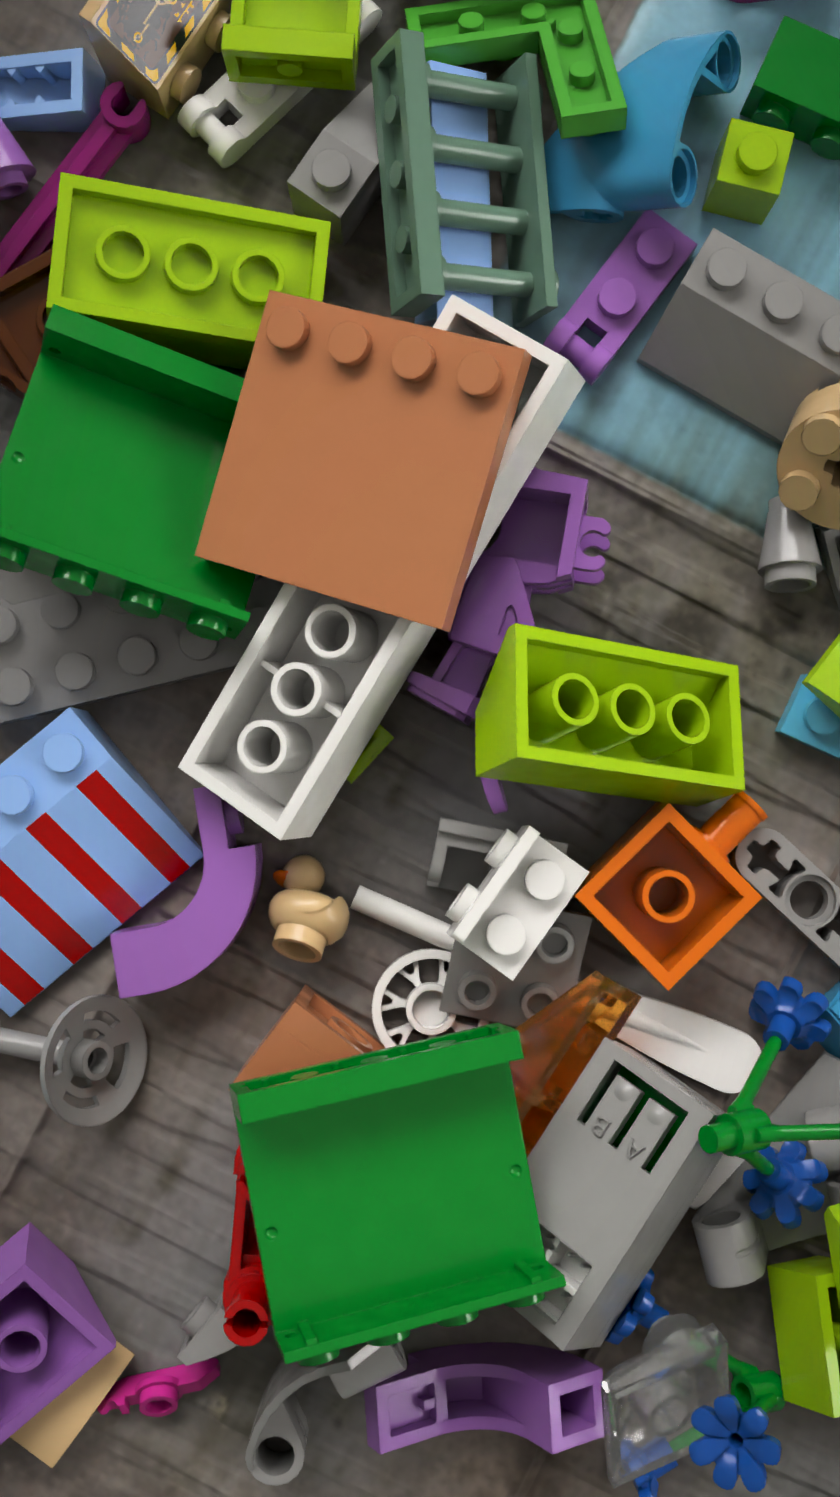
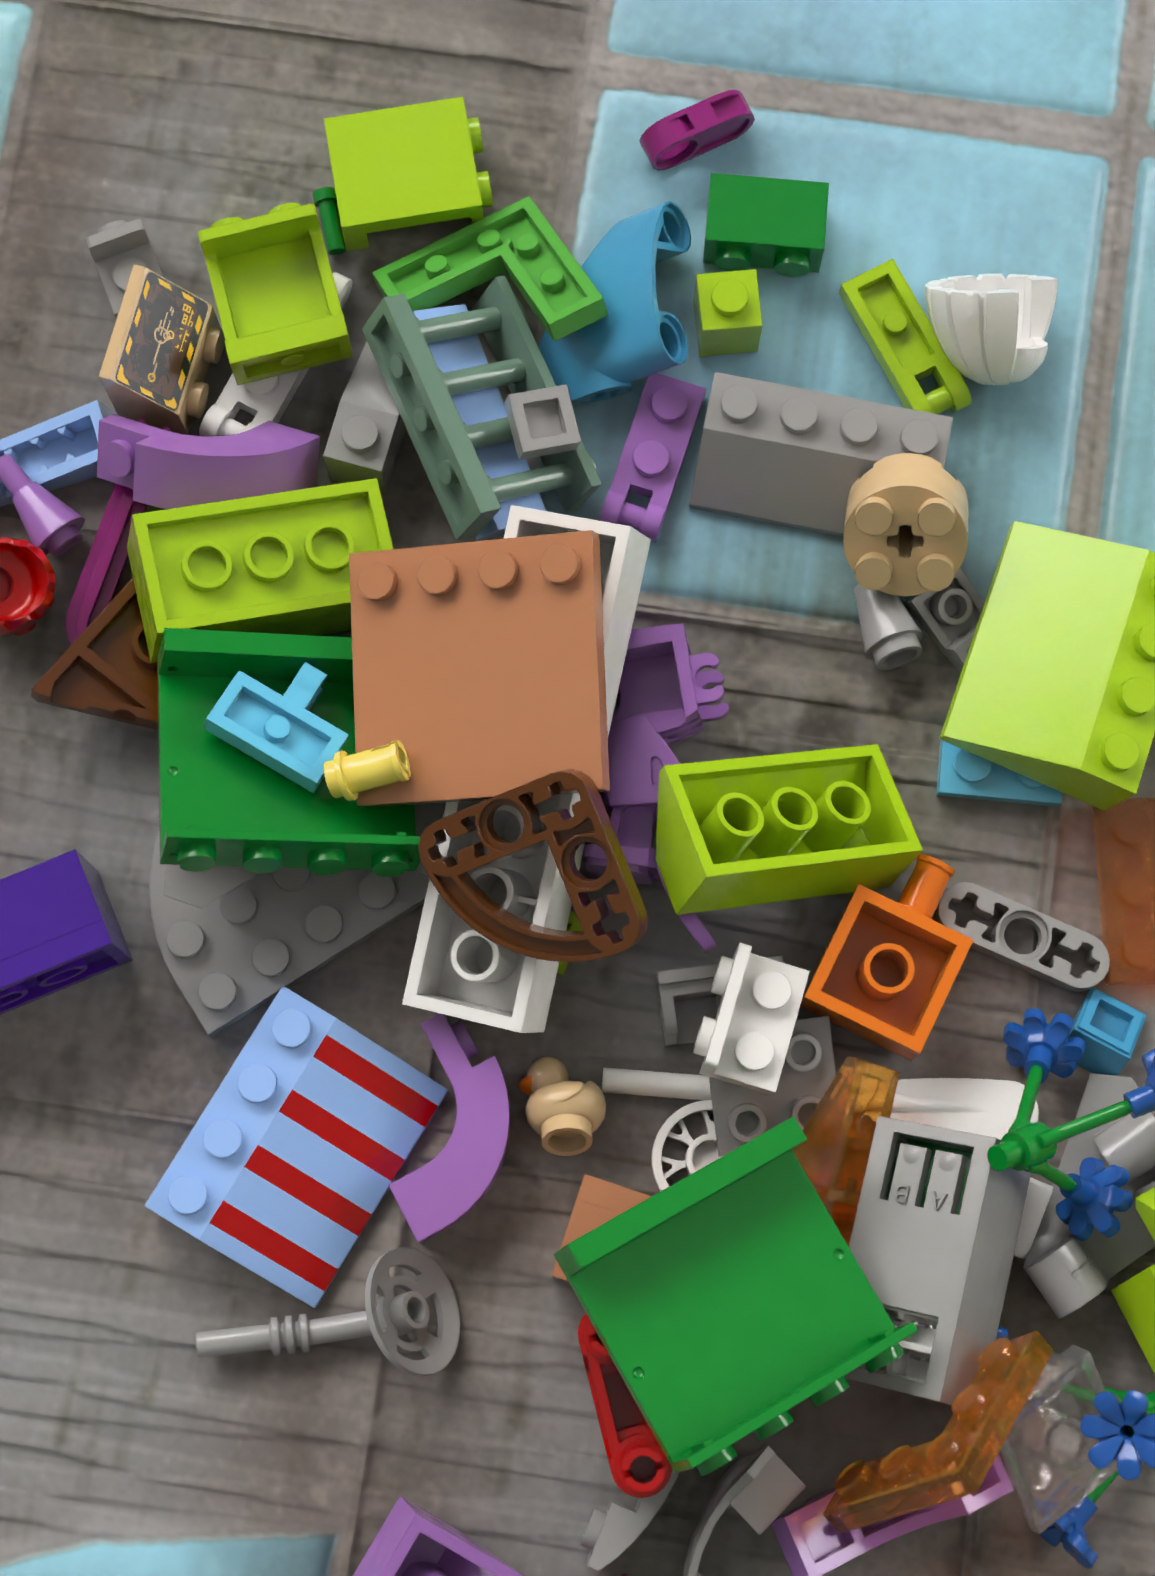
camera: 20 degrees left, 10 degrees down
(142, 448) = (278, 727): none -> medium azure plate
(149, 150) = (194, 470): none -> medium lavender arch
(206, 523) = (366, 770): none -> light yellow pin
(385, 663) = (564, 838): none -> reddish brown beam
(519, 220) = (542, 422): none -> light grey plate
(562, 1424) = (957, 1458): none -> clear orange plate

